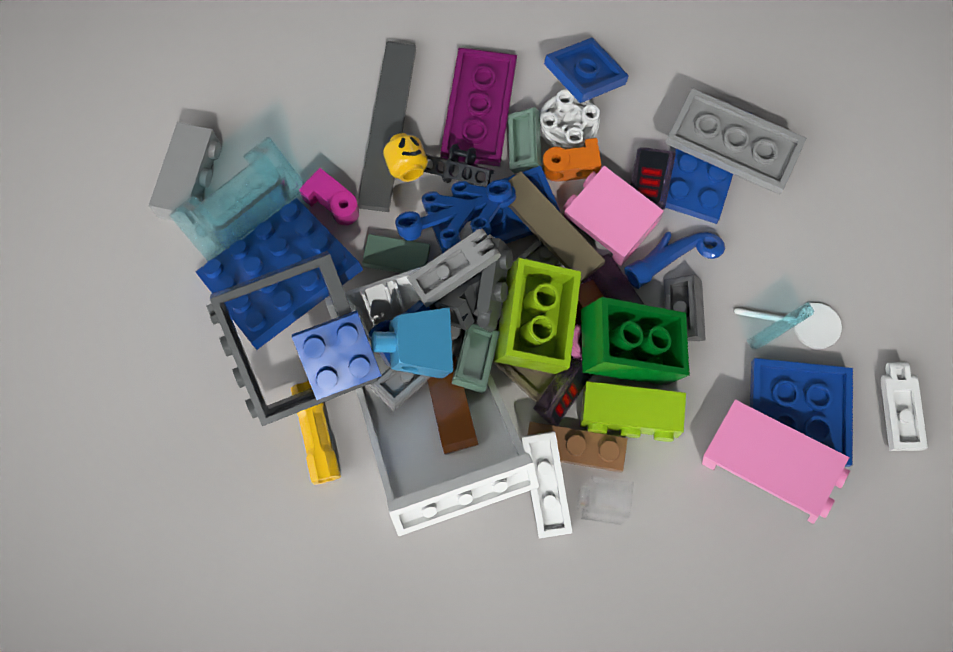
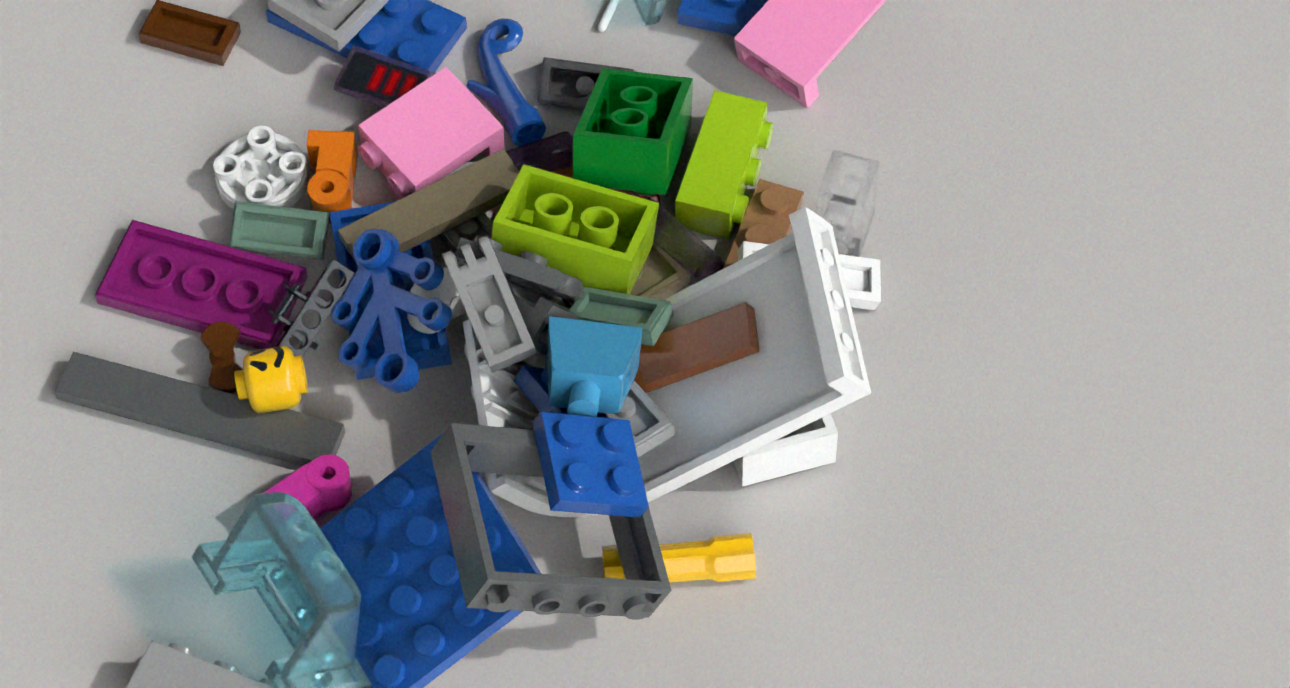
camera: 80 degrees left, 15 degrees down
(394, 254) = (422, 419): sand green tile -> none
(435, 123) = (220, 341): none -> reddish brown piece
(586, 70) = (190, 129): blue plate -> none
(669, 56) = (190, 32): none -> reddish brown tile

